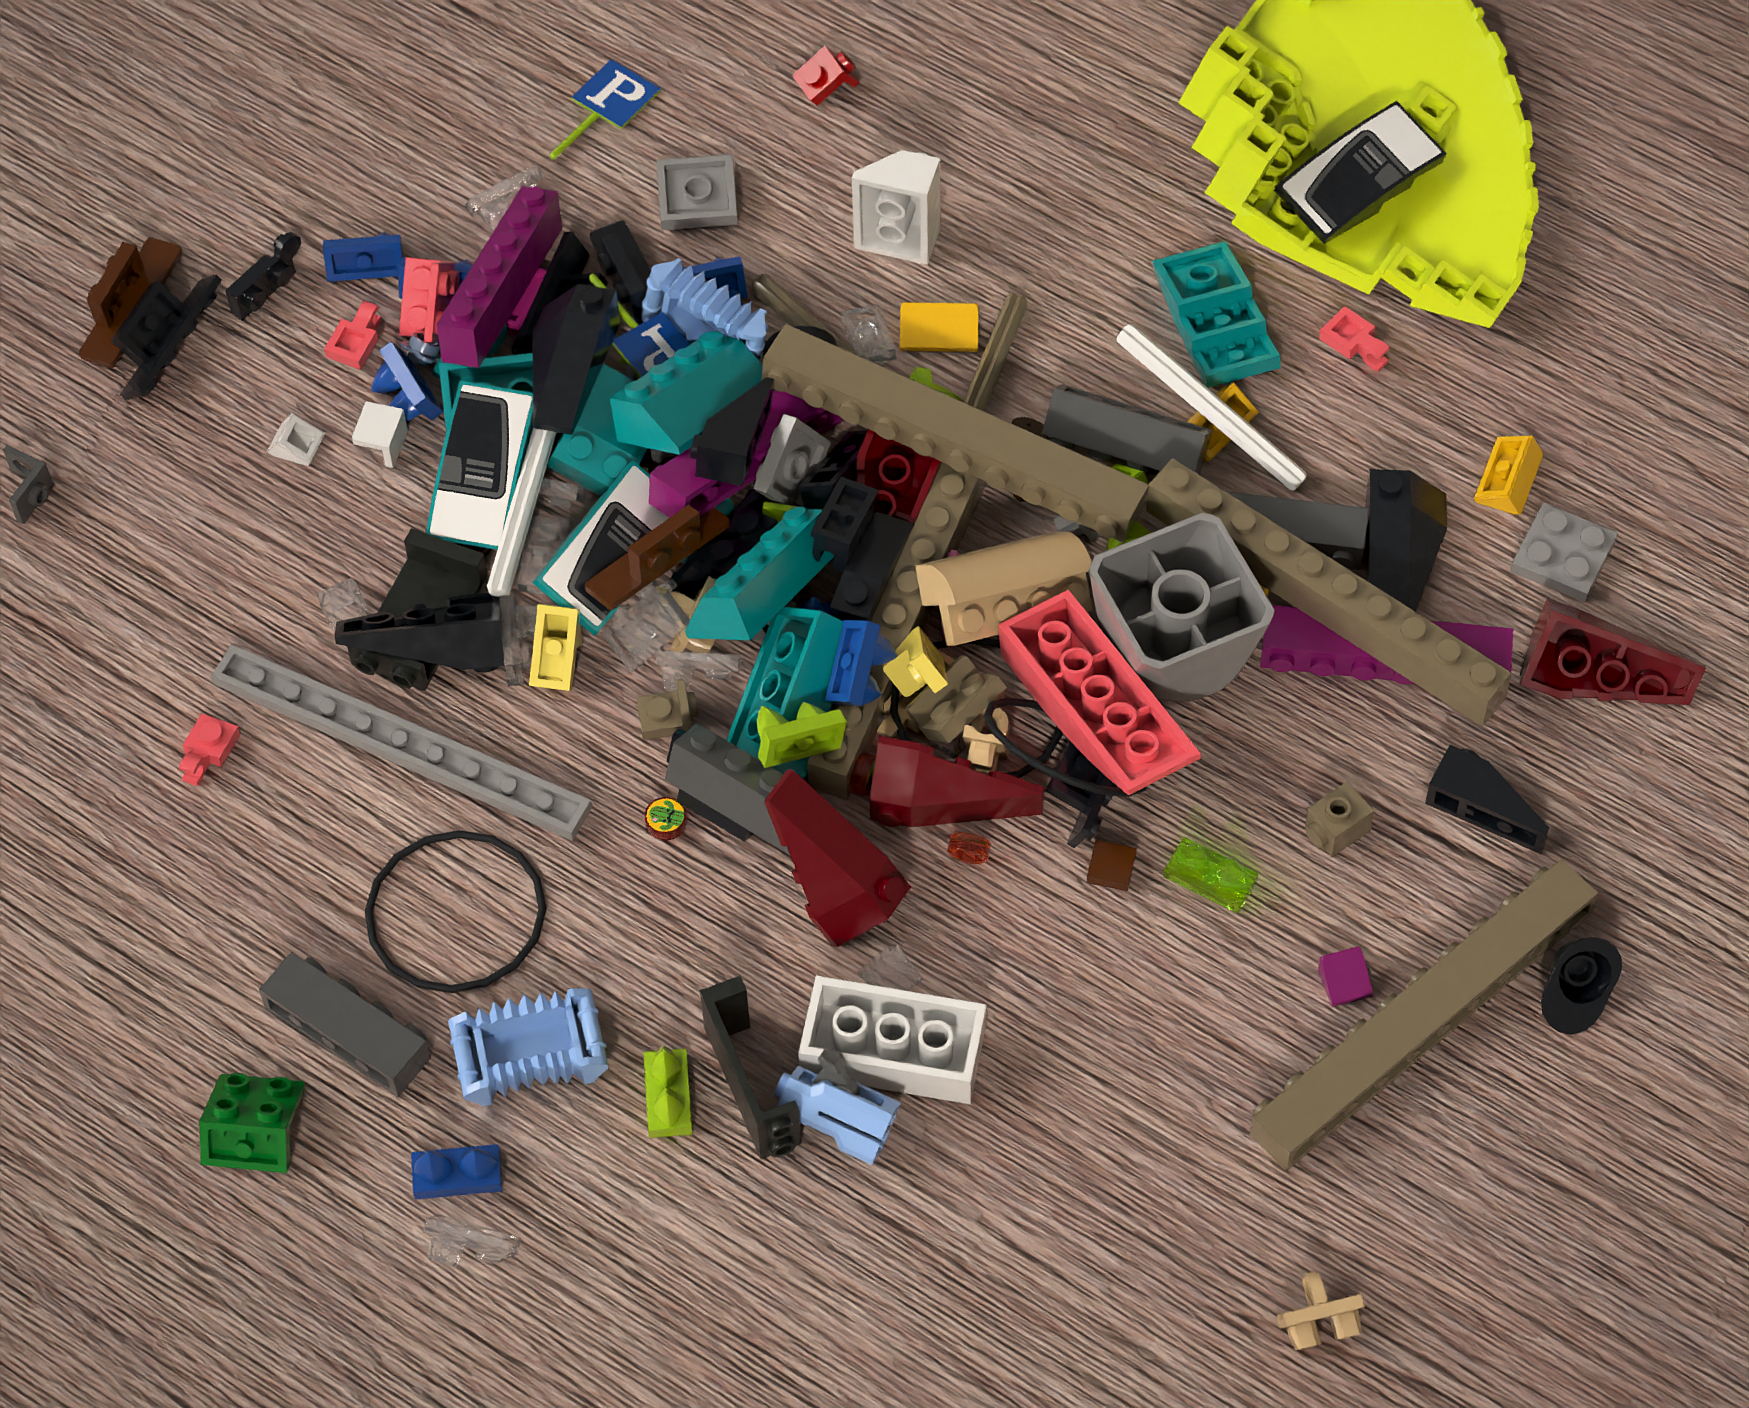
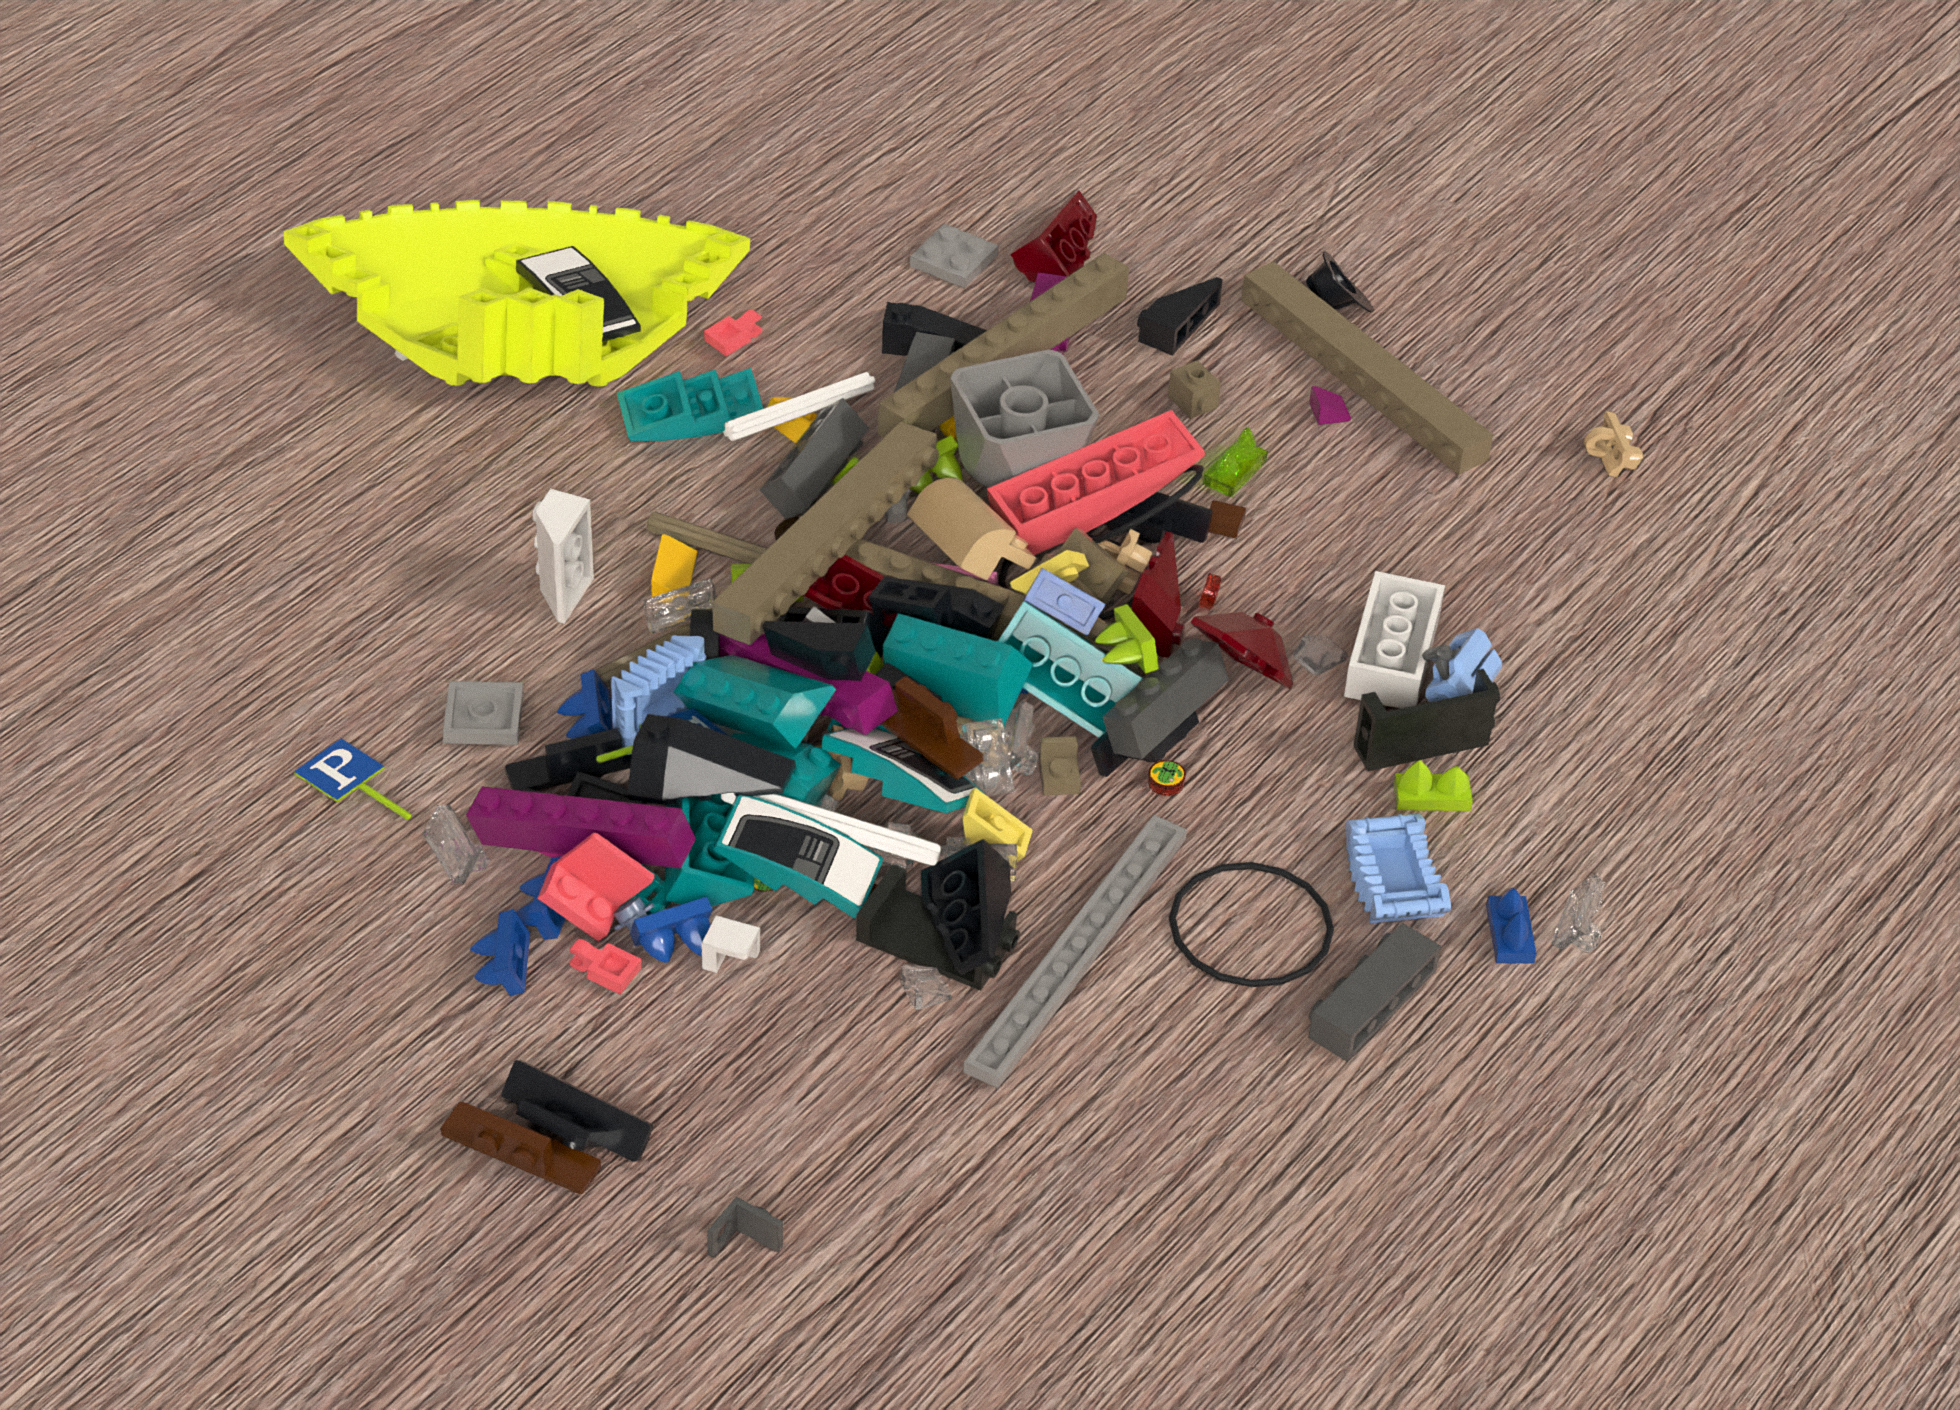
camera: 90 degrees left, 15 degrees down
(207, 743) = (1068, 1090): coral plate -> none
(249, 1122) = (1470, 1054): green bracket -> none
(264, 277) = (518, 1031): black hinge -> none
(296, 440) = (717, 1022): white slope -> none
(825, 74) = (366, 617): bracket -> none
(1509, 473) = (875, 273): yellow slope -> none

